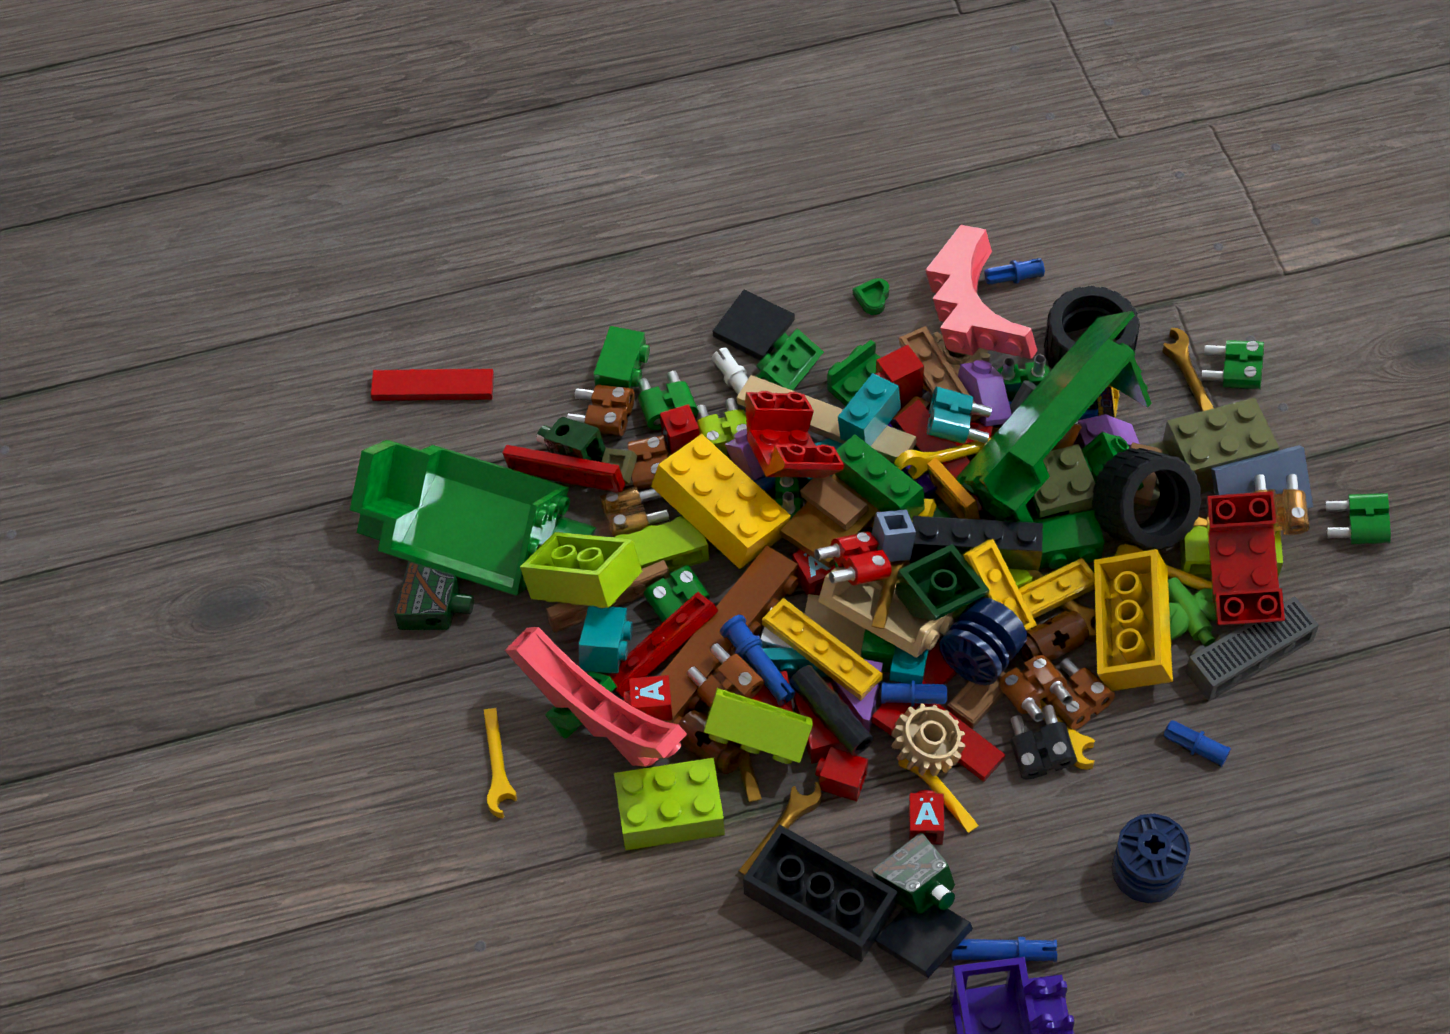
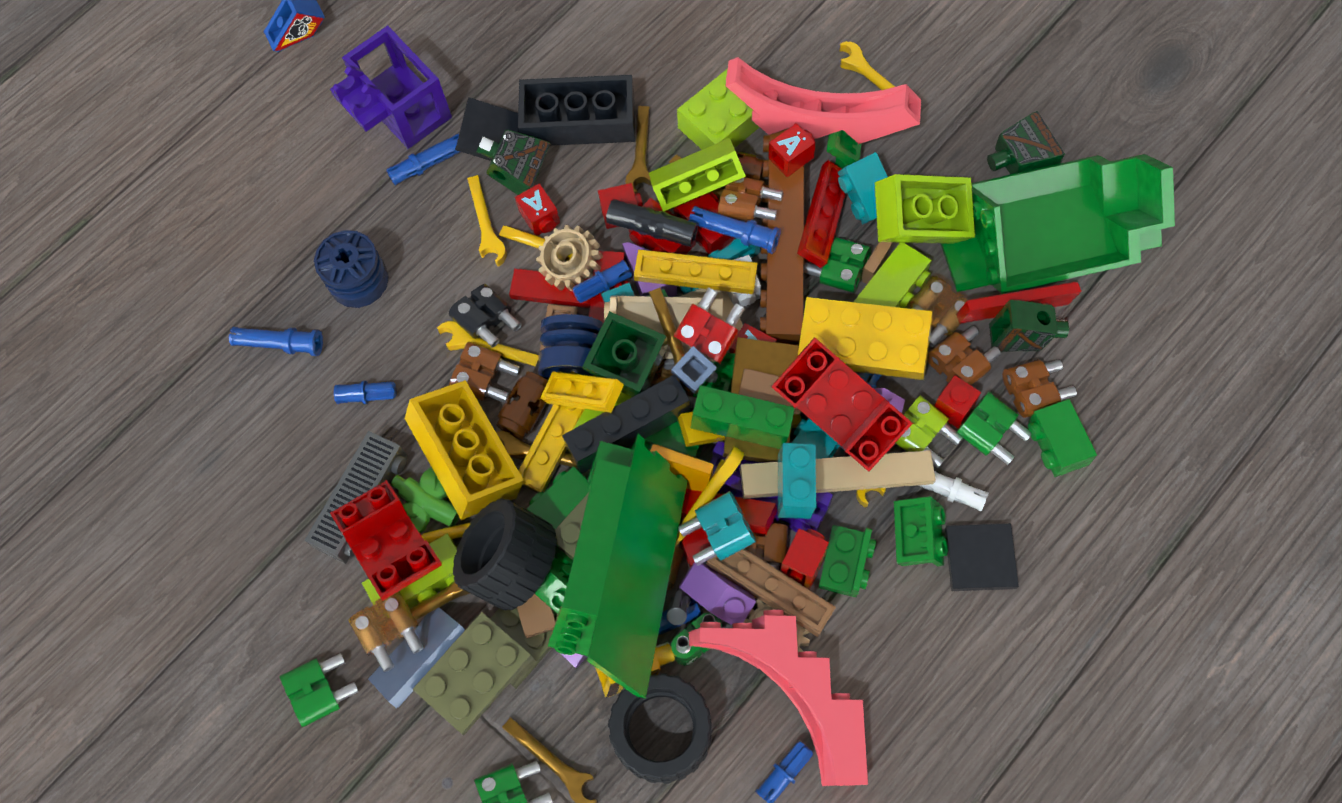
camera: 150 degrees right, 10 degrees up
(432, 384) = (1196, 325): red tile -> none
(624, 458) = (979, 334): olive tile -> none
(872, 295) = (900, 661): green tile -> none
(991, 825) = (489, 240): none -> yellow piece
(1032, 684) = (513, 349): dark orange piece -> none
(1248, 834) = (288, 340): none -> blue pin

